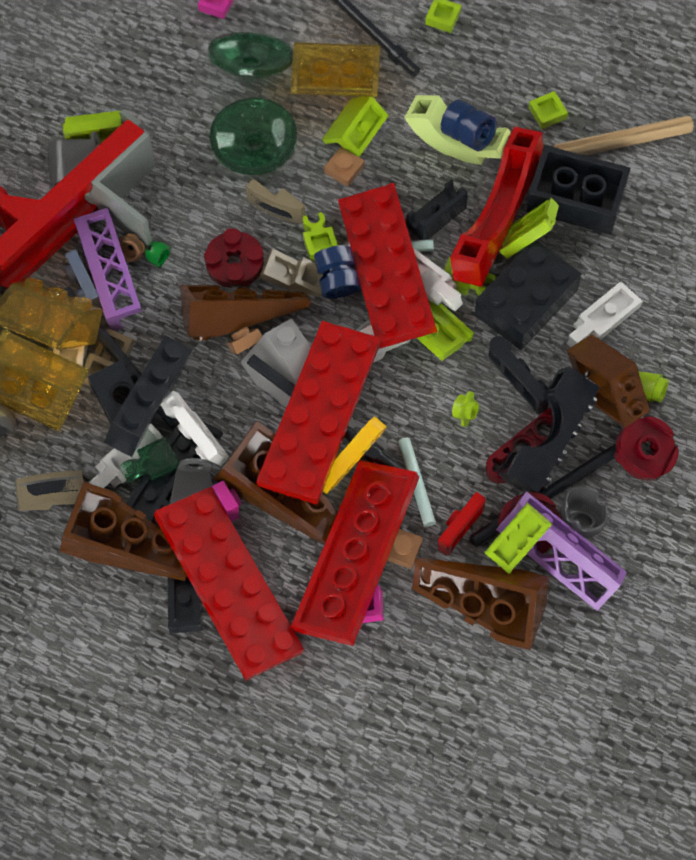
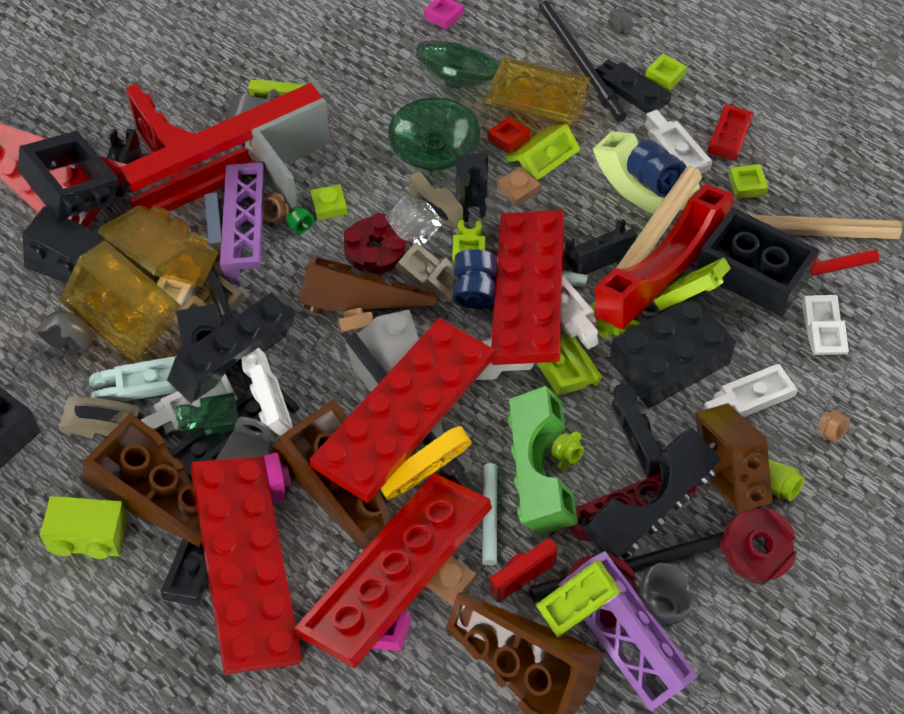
camera: 15 degrees right, 10 degrees down
(71, 445) = (133, 381): none -> light aqua hinge
(78, 591) = (84, 527): none -> lime brick
(177, 228) = (328, 202): none -> lime plate
(263, 228) = (413, 219): none -> clear brick
(303, 178) = (472, 182): none -> black hinge
(319, 117) = (508, 135): none -> red plate
(417, 36) = (633, 86): none -> black hinge
(432, 391) = (535, 423): none -> bright green arch
(474, 88) = (676, 141): none -> white hinge
(483, 178) = (662, 217): none -> tan axle
(519, 63) = (730, 132): none -> red plate
(649, 234) = (824, 326): none -> white slope
(653, 166) = (846, 262): none -> red bar
(679, 325) = (833, 425): none -> medium nougat plate

